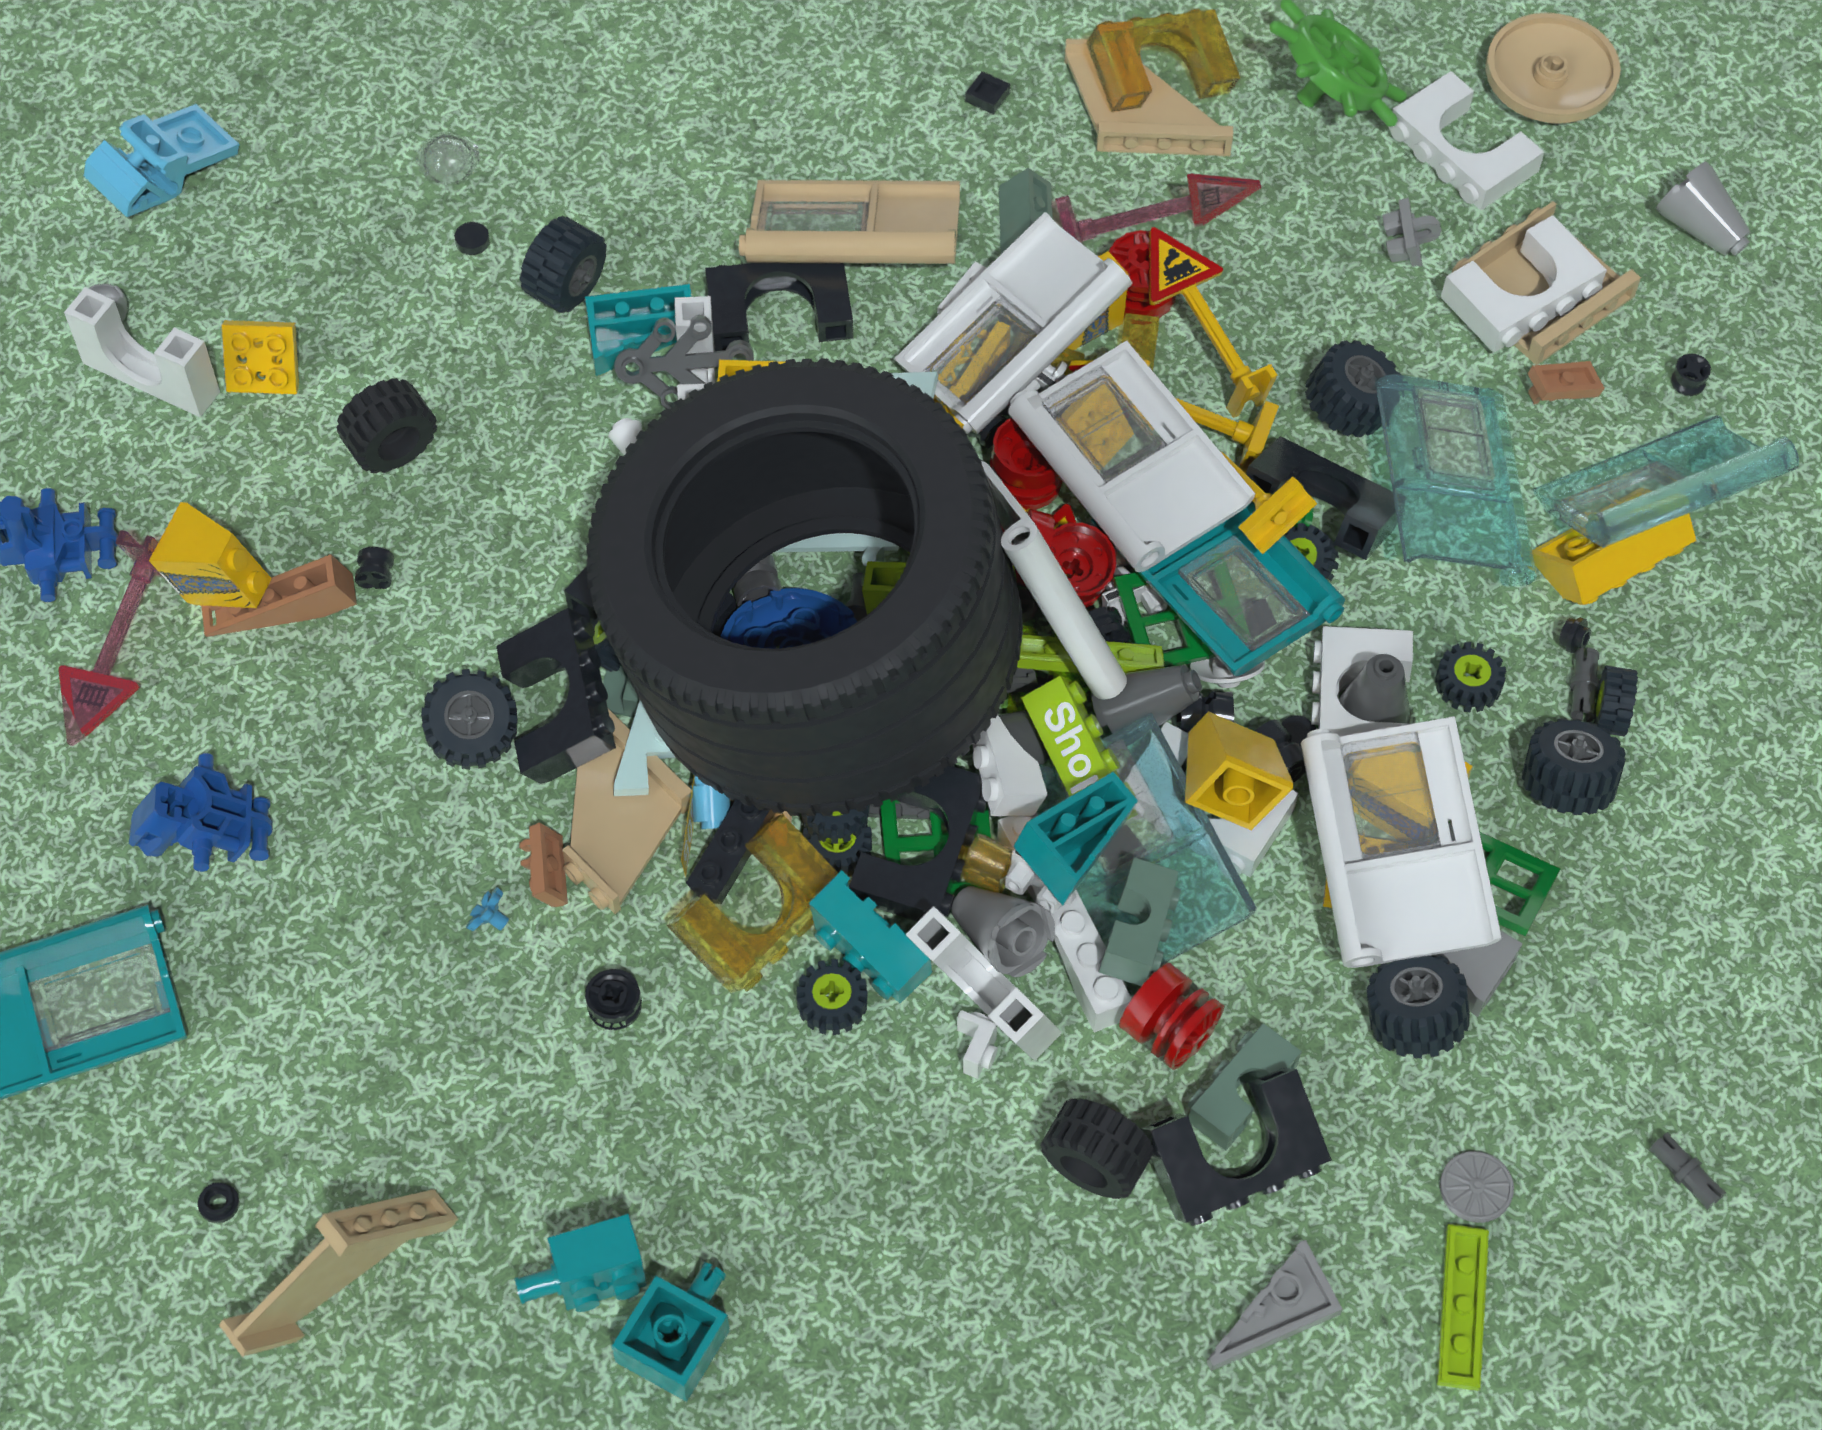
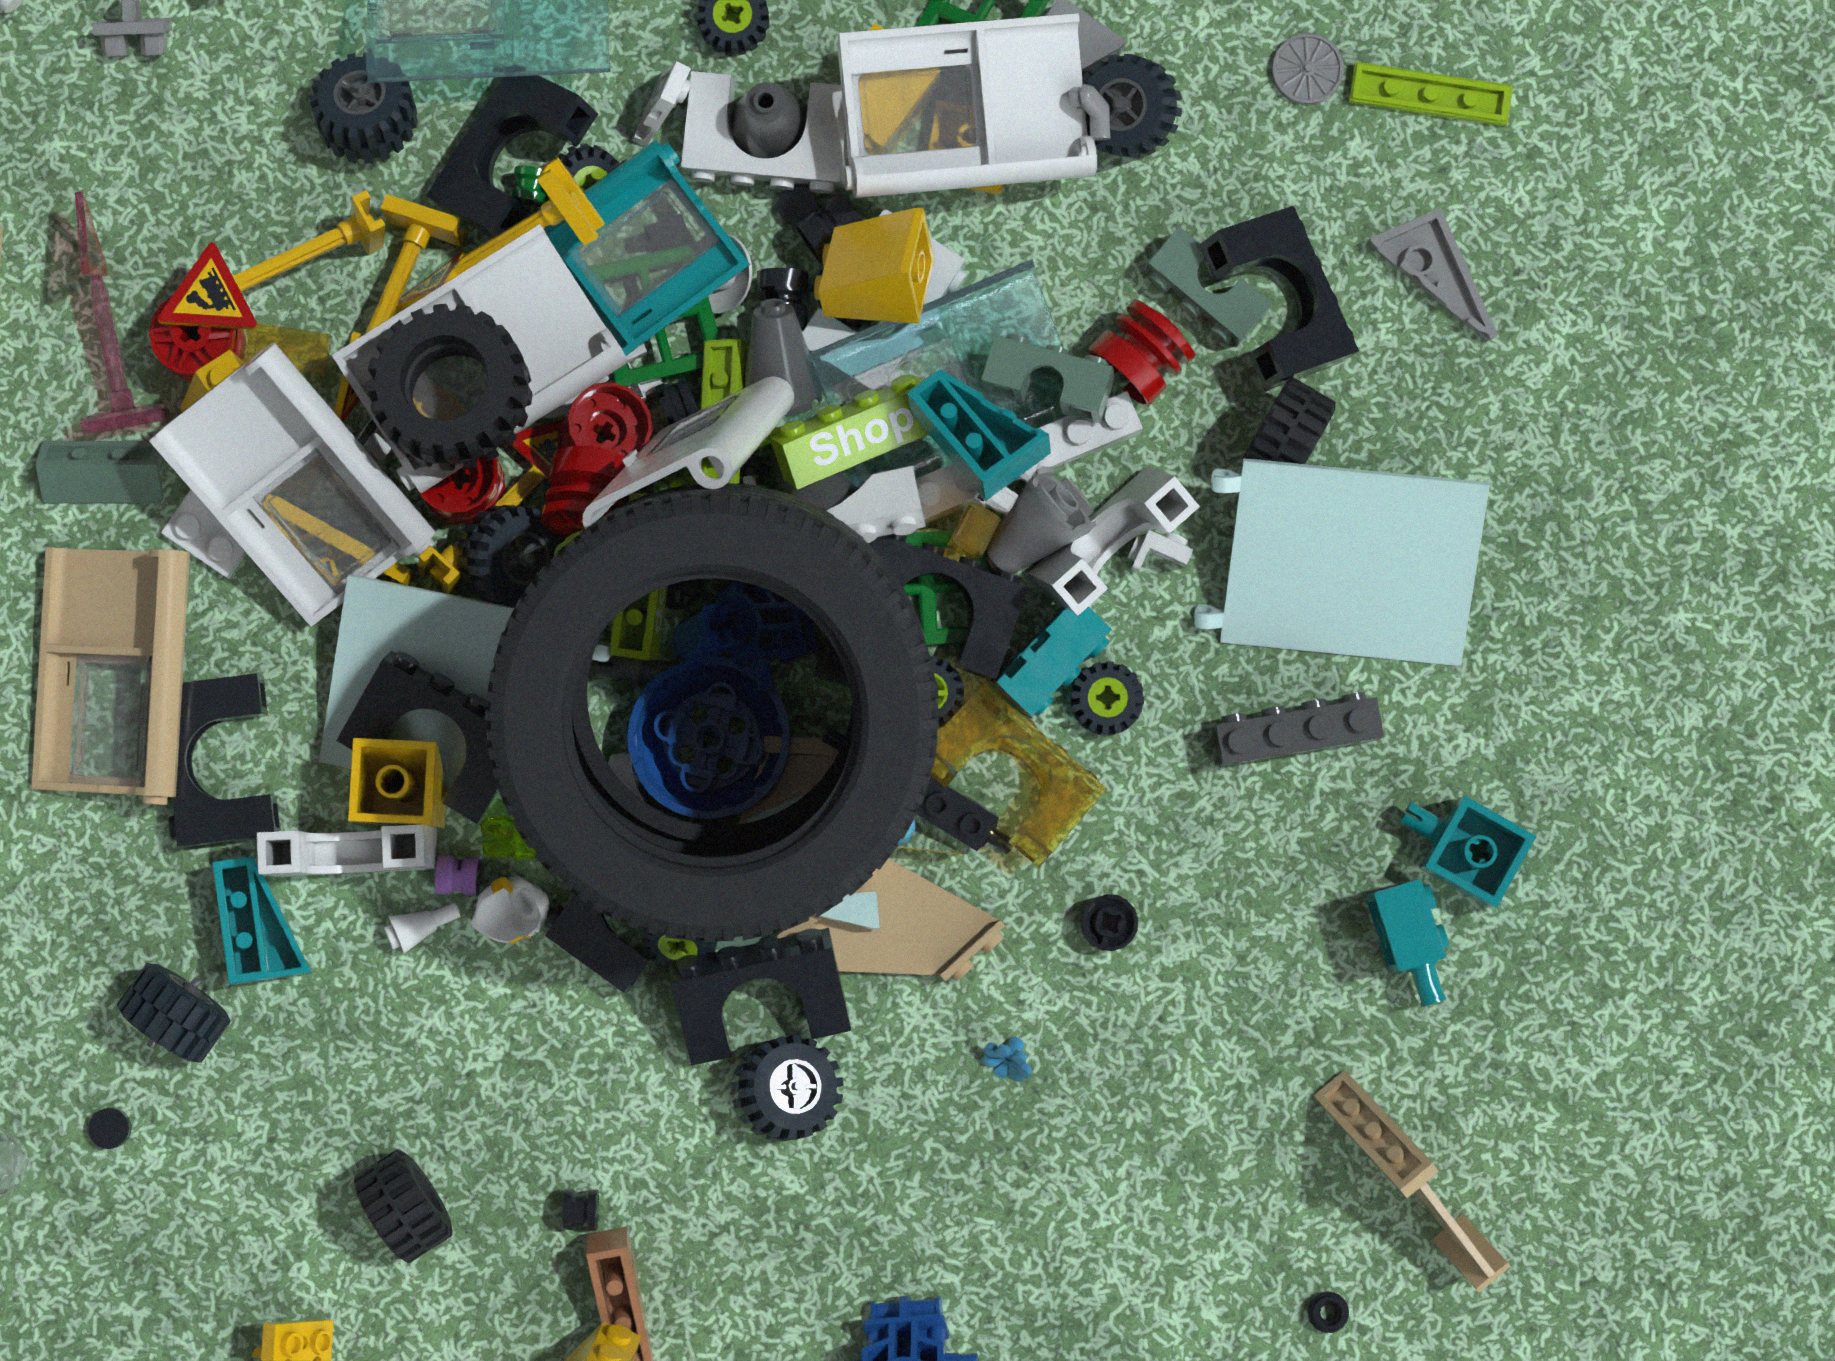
camera: 85 degrees left, 25 degrees up
(546, 865) = (962, 997): nougat plate -> none
(676, 360) = (334, 912): dark grey plant -> none
(797, 1168) = (1299, 731): none -> dark grey brick
(968, 1208) = (1349, 561): none -> light aqua flag
(1108, 376) = (426, 341): none -> black tyre
(1383, 612) = (668, 91): none -> white wing
(1410, 962) = (1096, 106): none -> light grey arm

